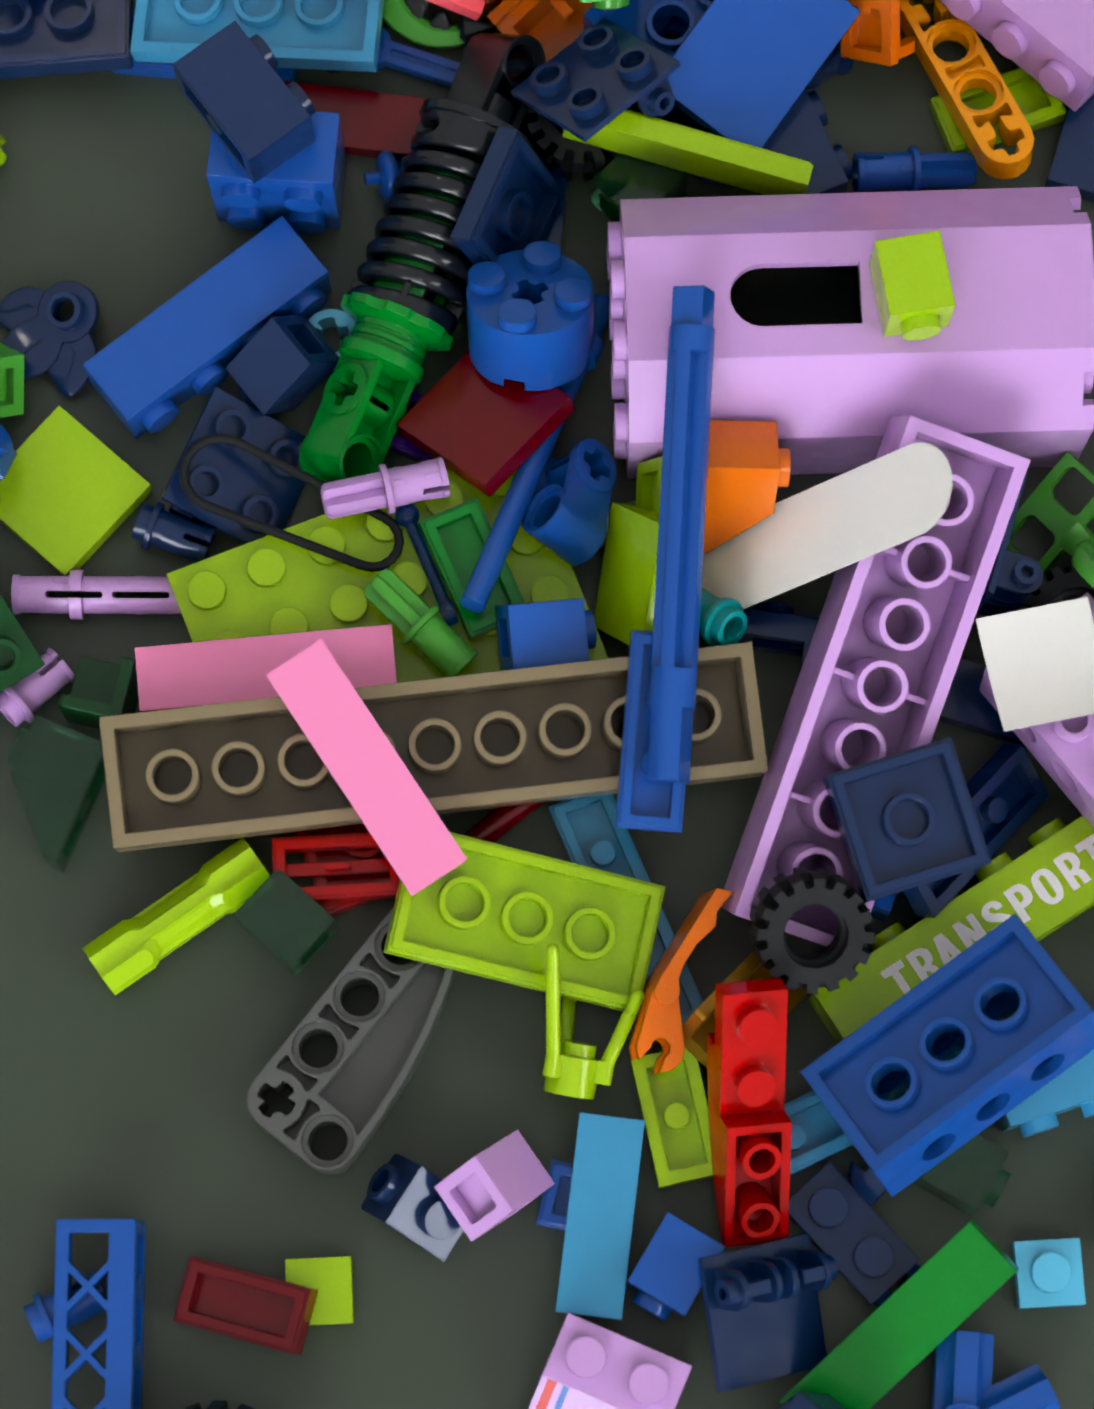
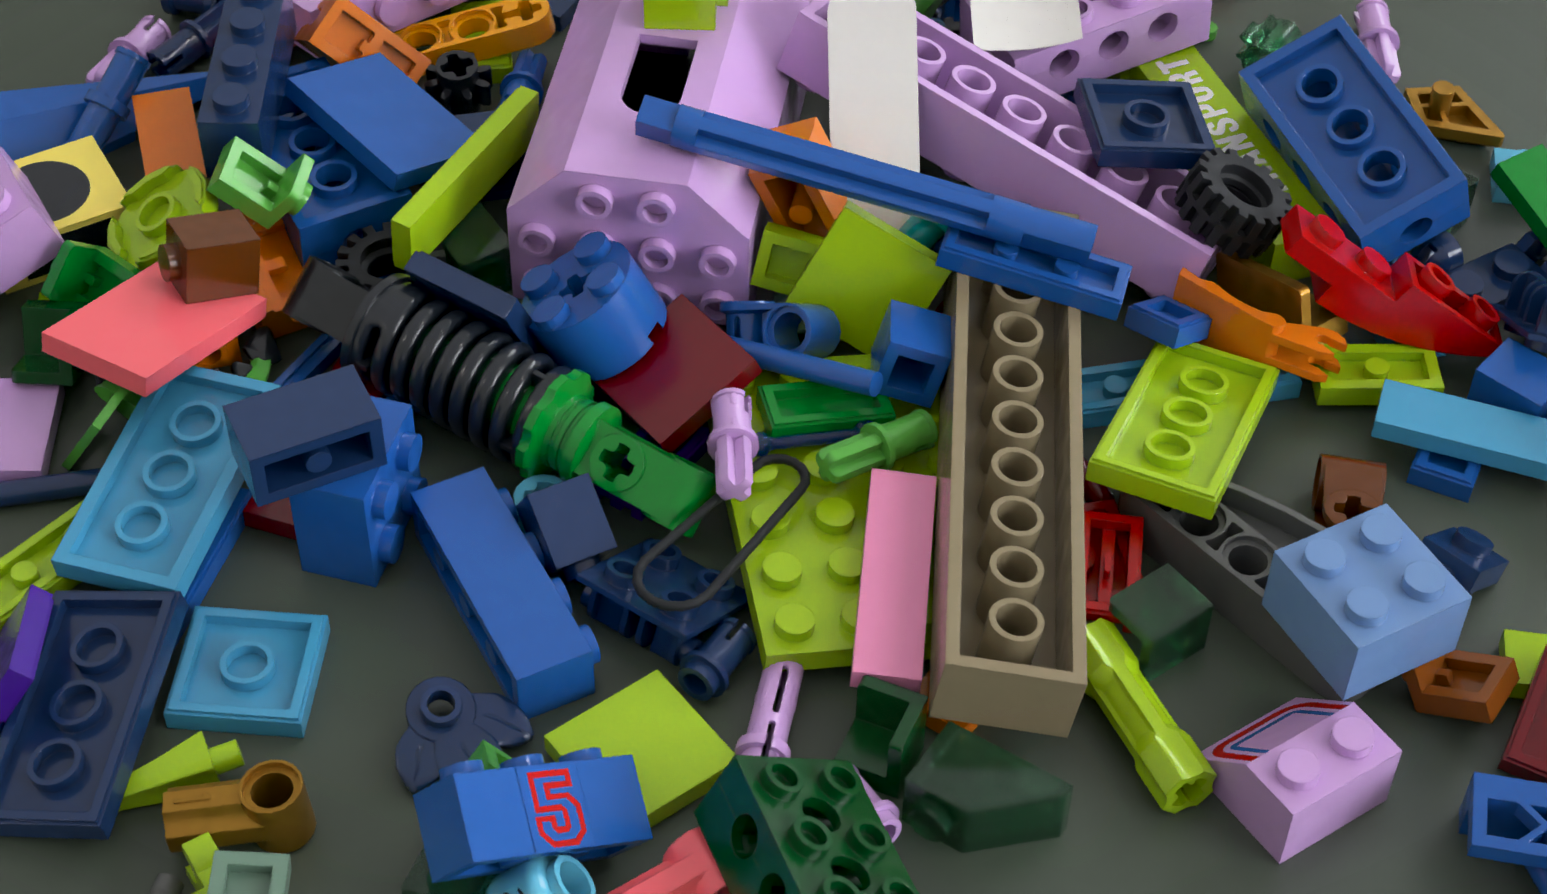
camera: 80 degrees left, 30 degrees down
(94, 141) = (248, 672): none -> dark azure tile
(143, 1061) = (1303, 772): none -> lavender slope
(273, 1208) = (1463, 685): none -> dark orange bracket
(285, 1099) = (1365, 601): none -> medium blue brick
(366, 767) = (1034, 462): bright pink tile -> none
(490, 1096) = (1346, 488): none -> reddish brown piece
(494, 1185) = (1444, 492): lavender brick -> none
(569, 1064) = (1326, 427): lime plant -> none
(599, 80) = (384, 198): dark blue hinge -> none
(669, 888) = (1168, 321): none -> blue tile
(900, 88) = (459, 82): none -> black gear

